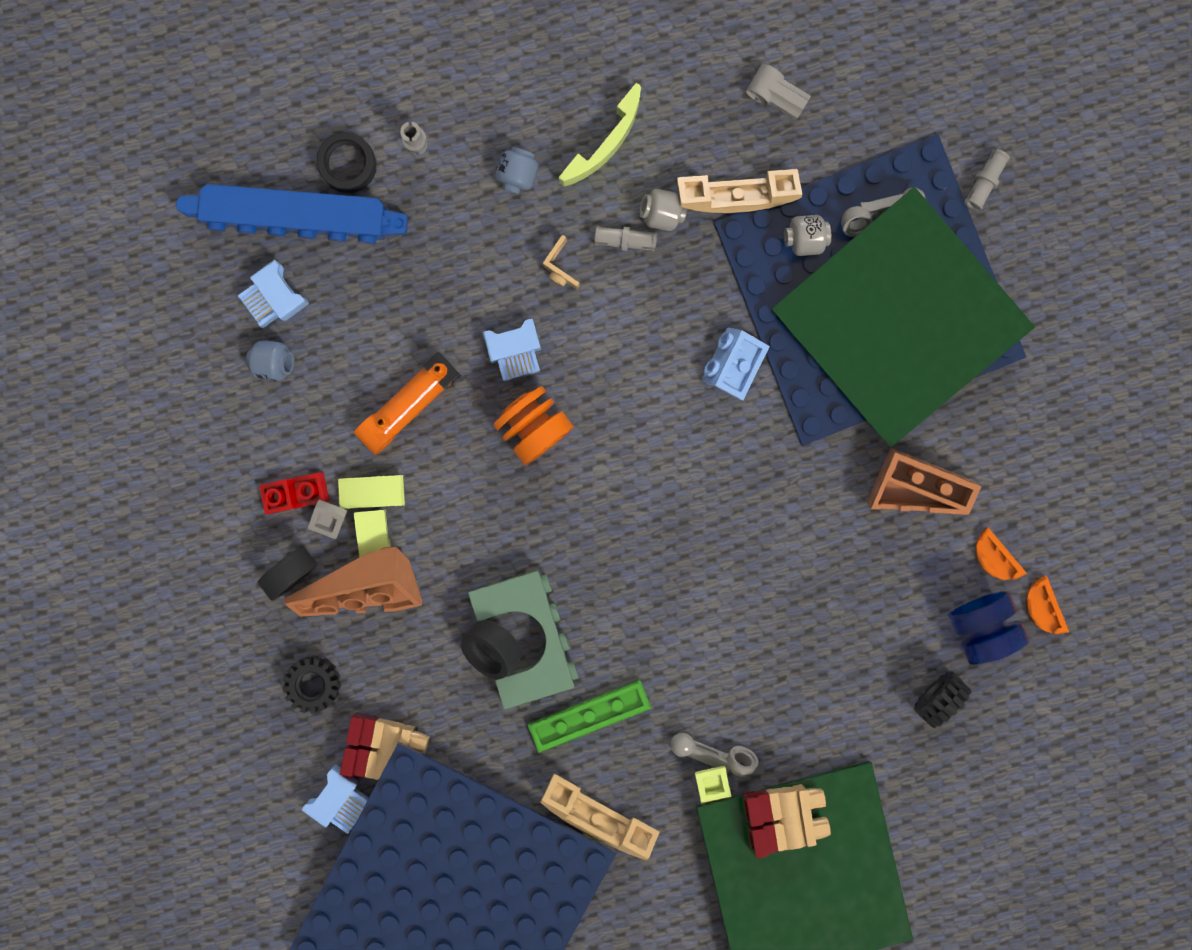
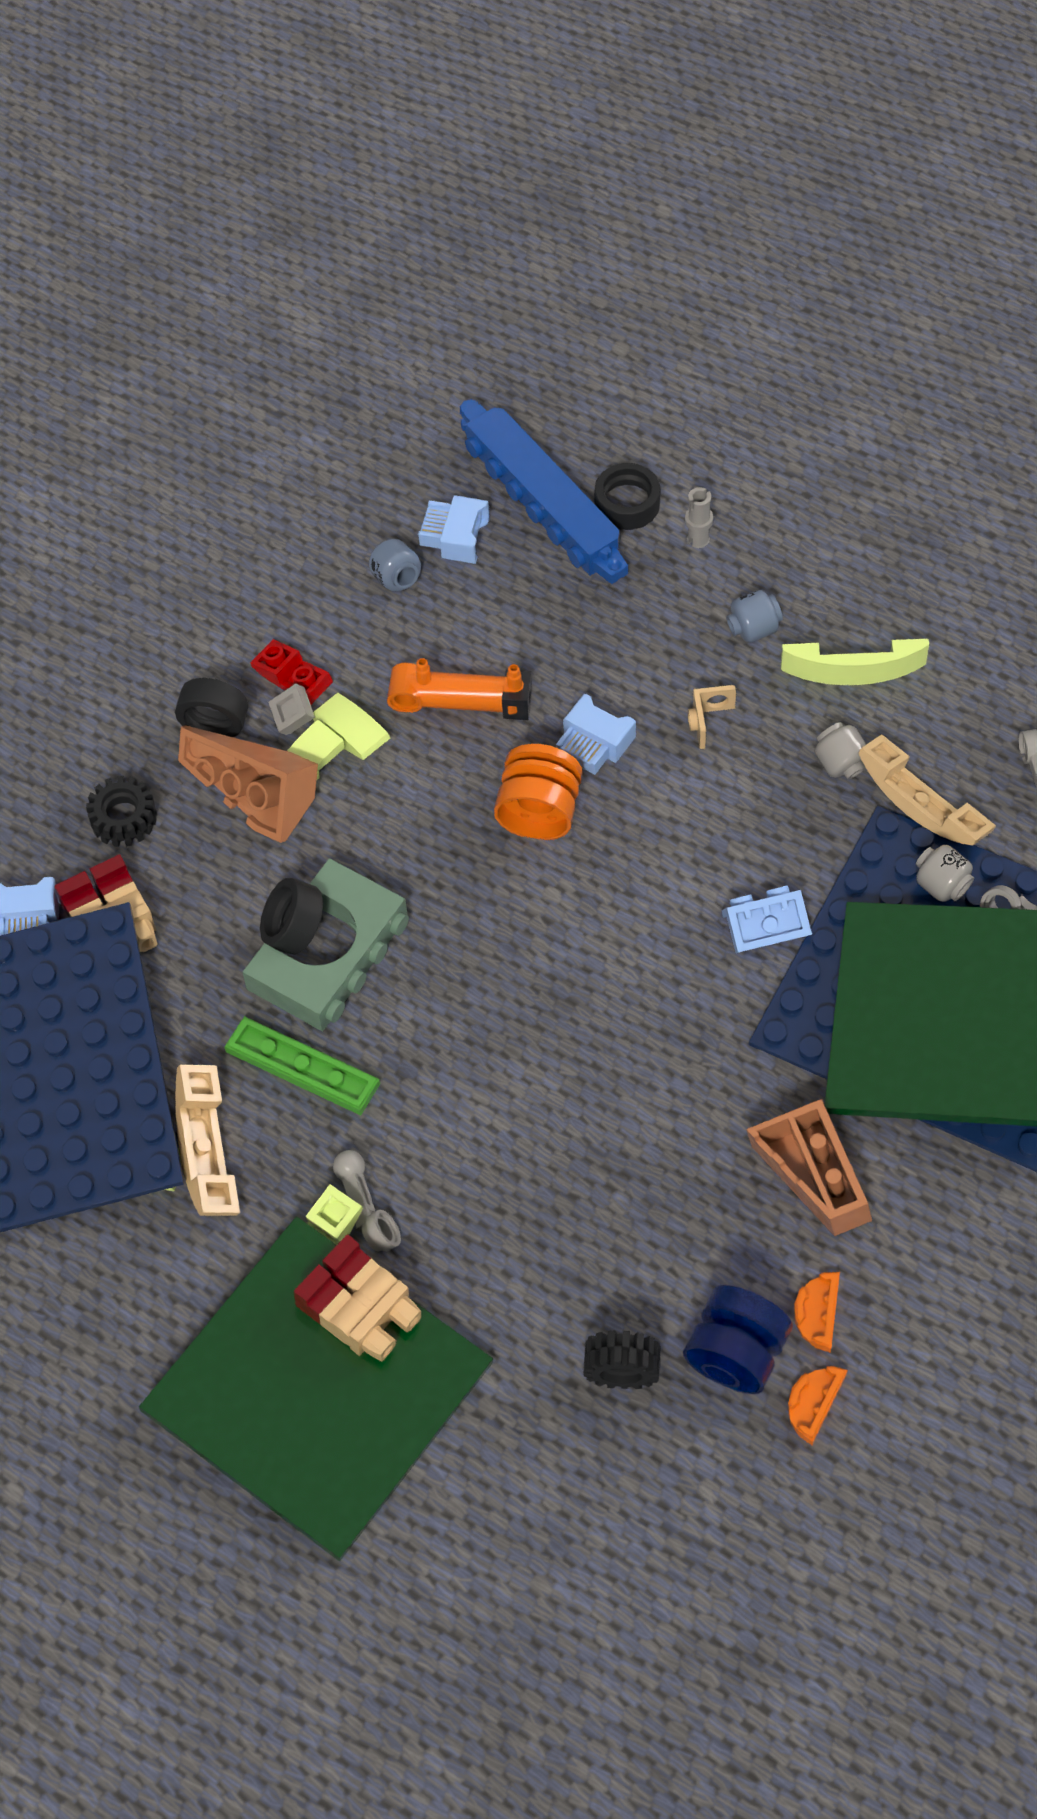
camera: 50 degrees right, 30 degrees down
(625, 238) = (785, 745): light grey pin -> none

